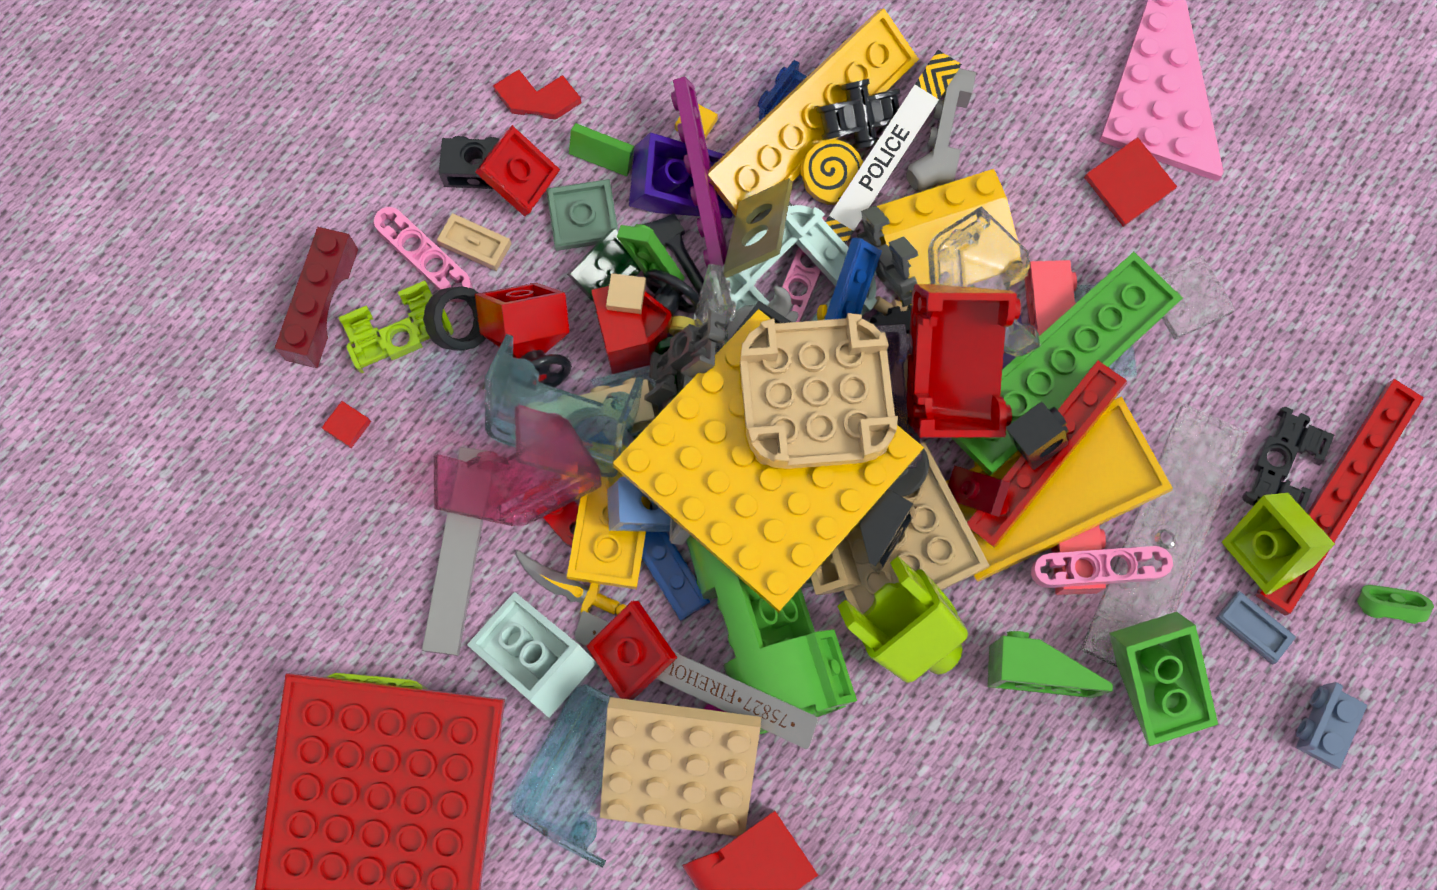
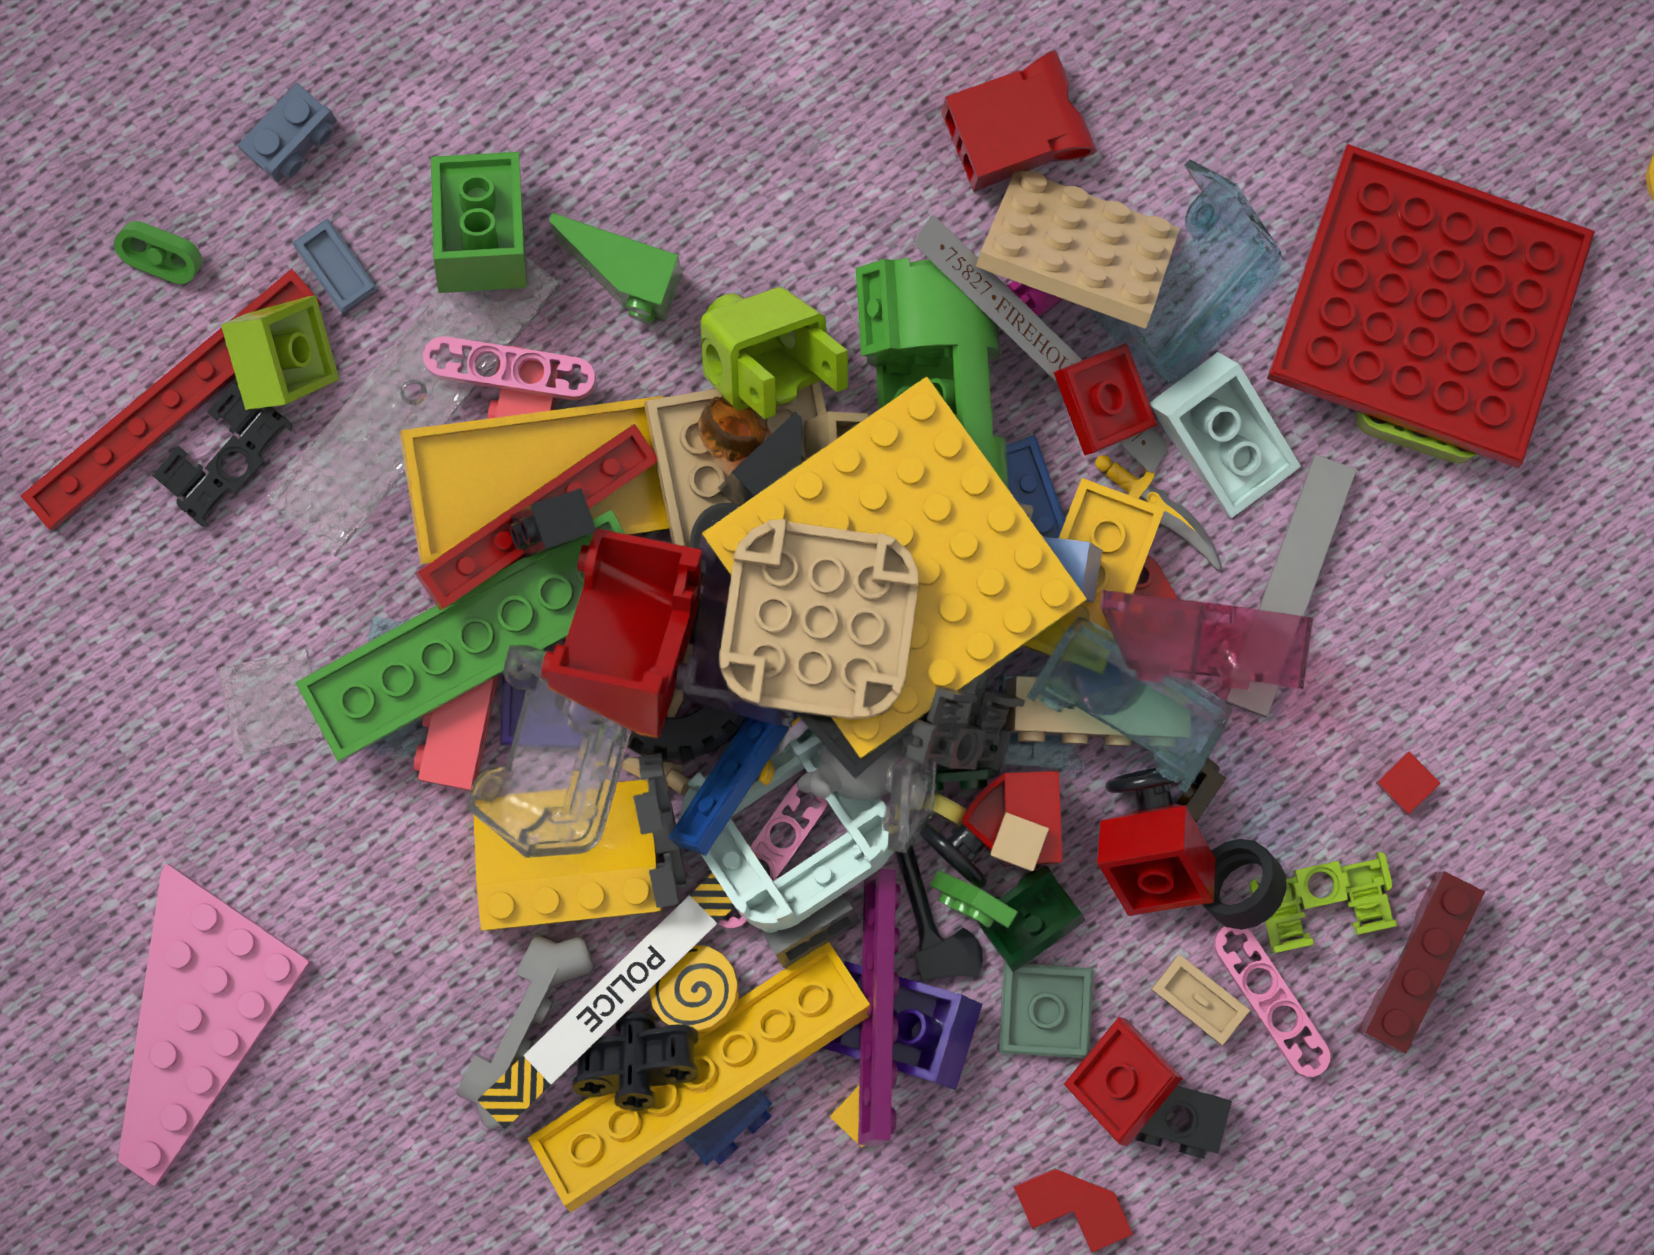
camera: 165 degrees left, 10 degrees up
(601, 149) = (1002, 1096): bright green tile -> none
(743, 257) = (829, 844): olive piece -> none
(921, 550) = (729, 432): none -> clear orange hair
(978, 490) = (635, 493): dark red plate -> none
(1130, 182) = (293, 883): red tile -> none

